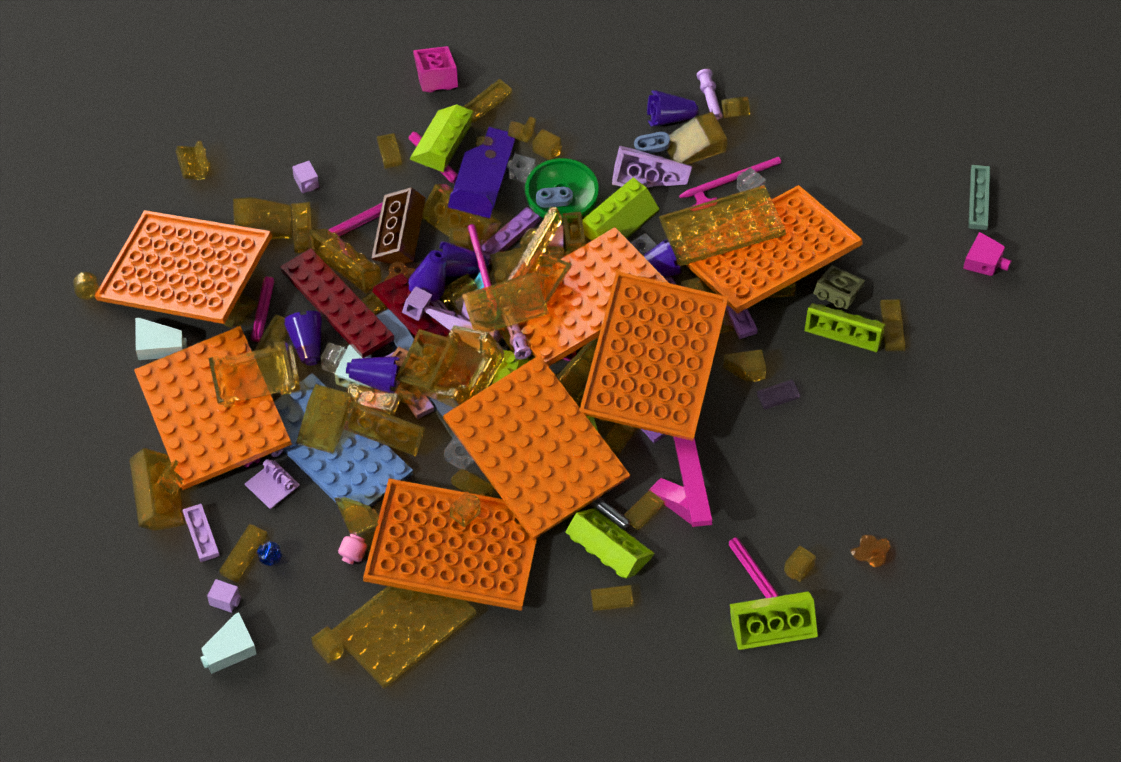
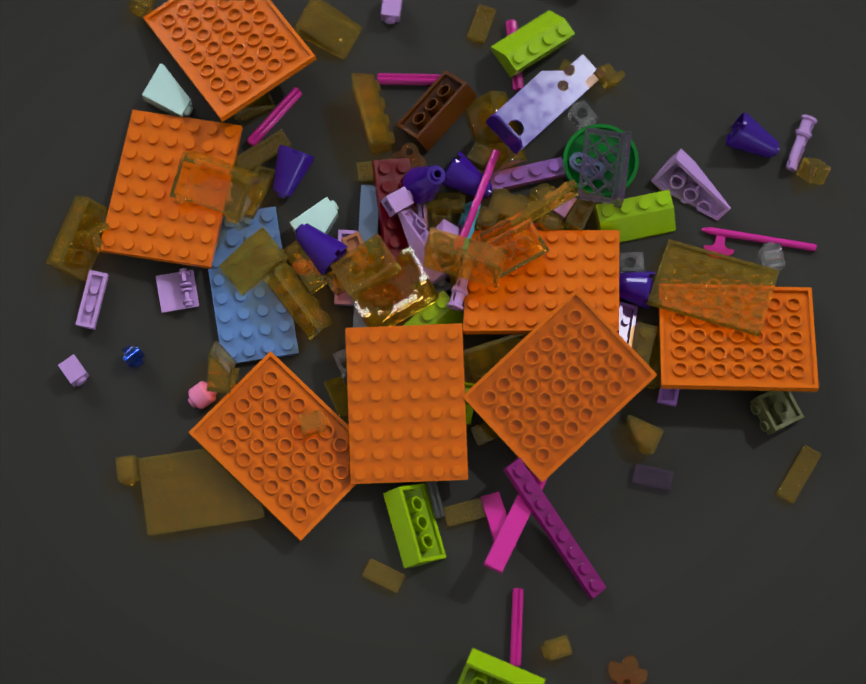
camera: 30 degrees right, 20 degrees up
(228, 646) = (50, 418): light aqua slope -> none
(243, 553) = (115, 339): clear yellow plate -> none
(301, 226) = (358, 54): clear yellow plate -> none
(332, 357) = (299, 203): clear brick -> none
(337, 303) = (336, 153): dark red plate -> none
(488, 99) = (598, 26): clear yellow plate -> none
(547, 145) = (620, 105): clear yellow brick -> none
(581, 180) = (620, 164): none -> fence
(652, 142) = (713, 162): sand blue plate -> none
(697, 140) = (753, 182): clear yellow slope -> none
(729, 471) = (554, 528): none -> magenta plate
(844, 327) = (753, 451): lime slope -> none

